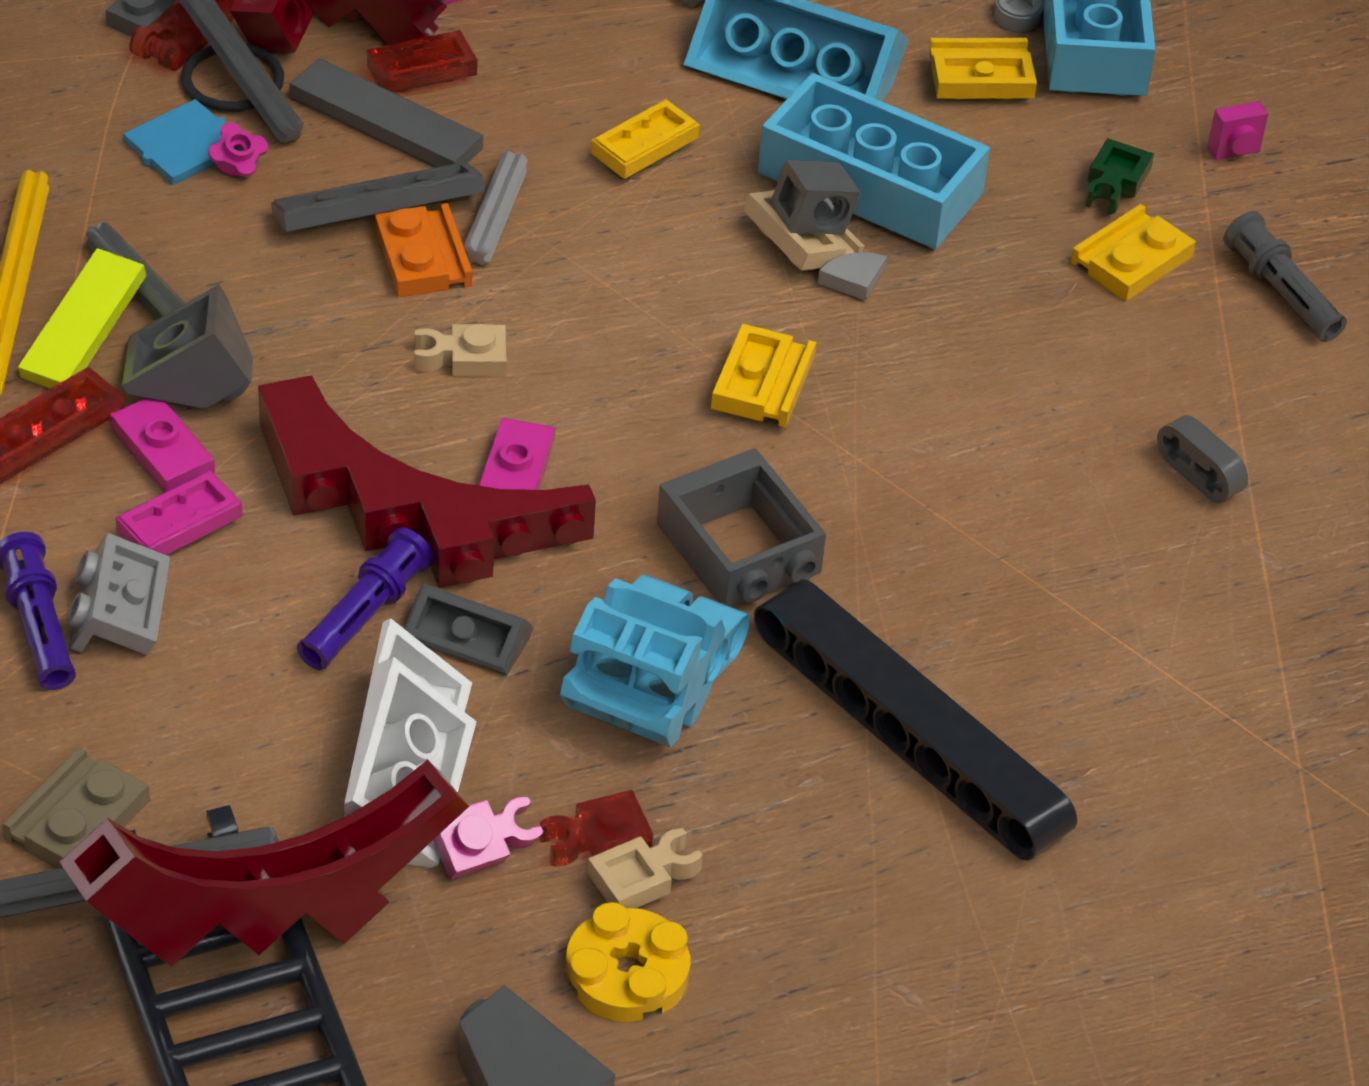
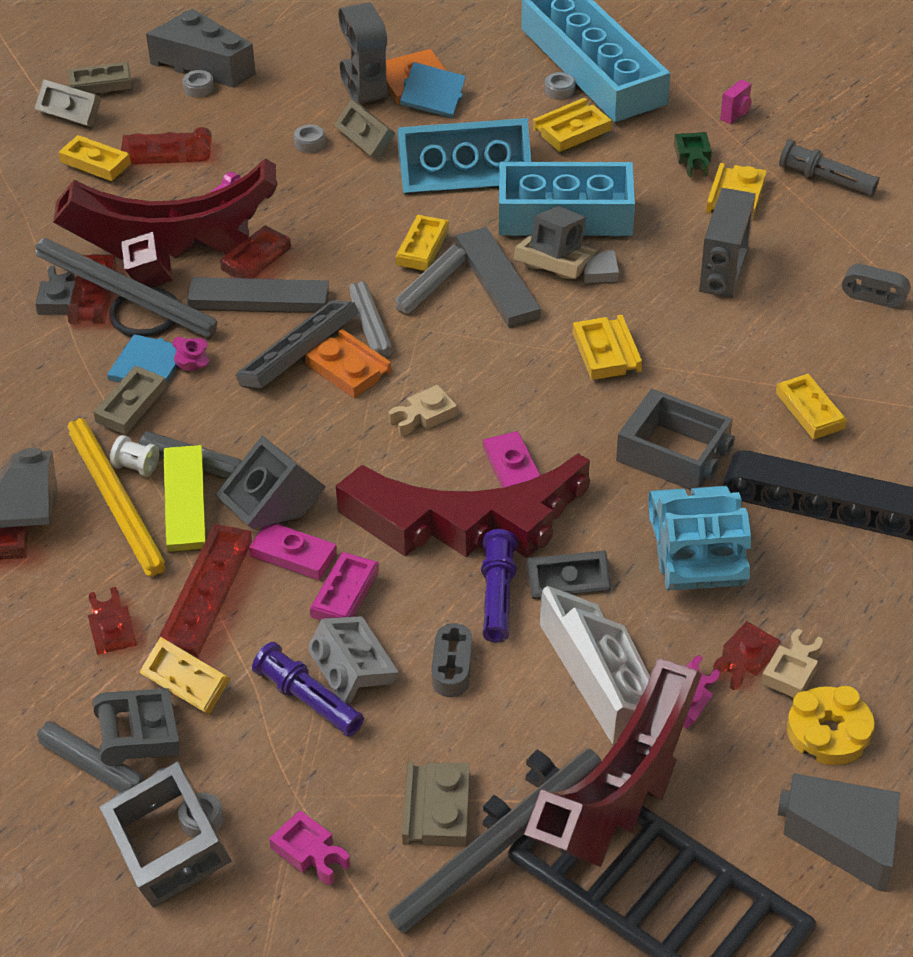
camera: 25 degrees left, 0 degrees up
(66, 245) = (141, 464): none -> white bush
(119, 175) = (130, 400): none -> dark tan plate
(229, 655) = (459, 660): none -> dark grey beam
(616, 190) = (430, 279): none -> light grey axle
(707, 225) = (498, 277): none -> dark grey tile
(965, 571) = (811, 406): none -> yellow plate
(1055, 278) = (727, 242): none -> dark grey window

